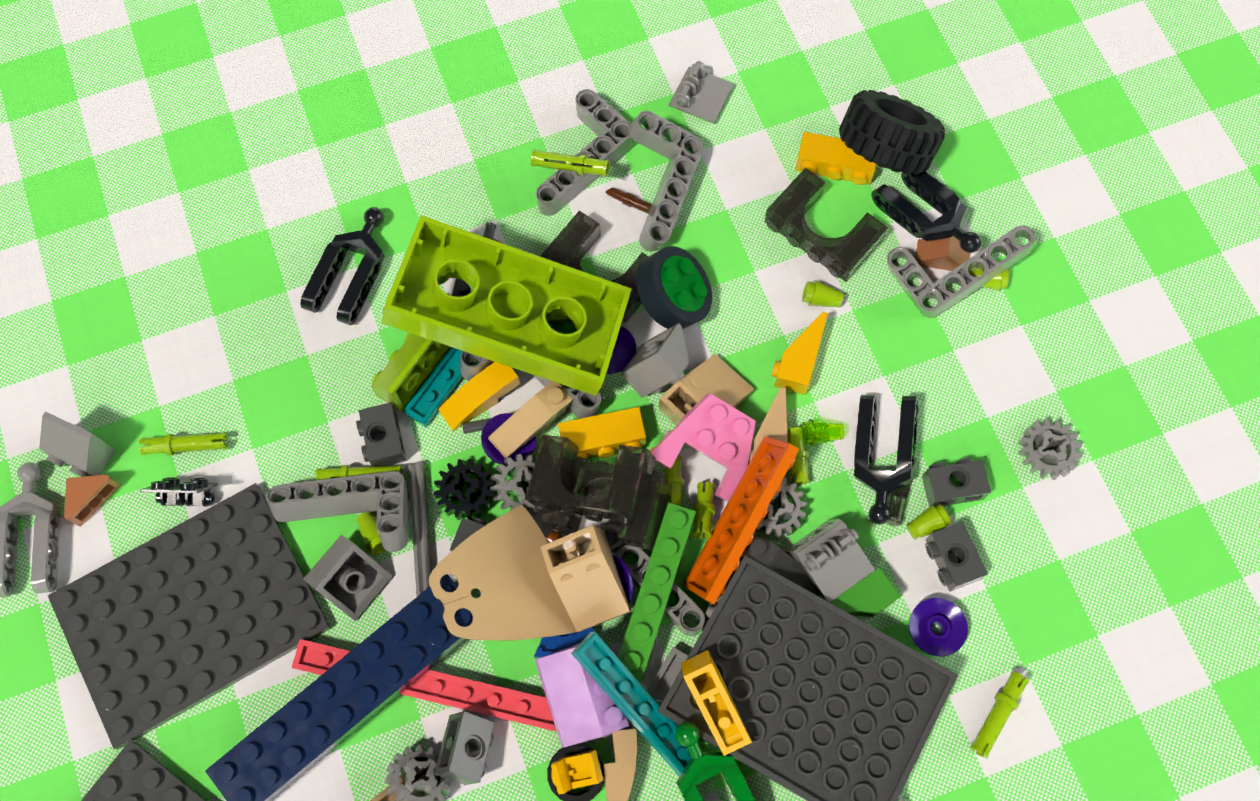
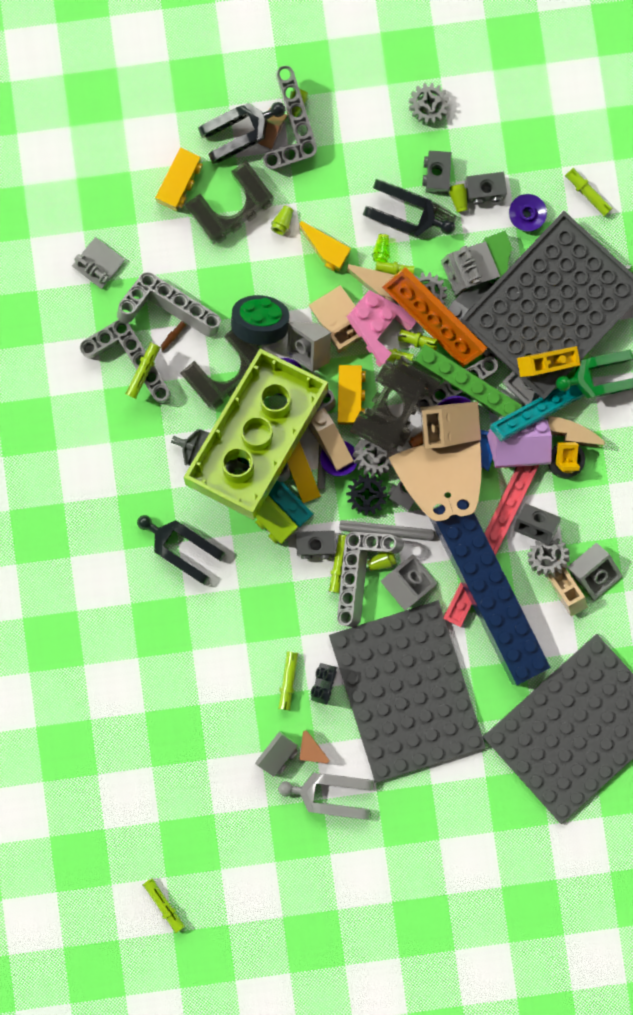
camera: 80 degrees left, 15 degrees up
(891, 132) = (178, 136): black tyre -> none

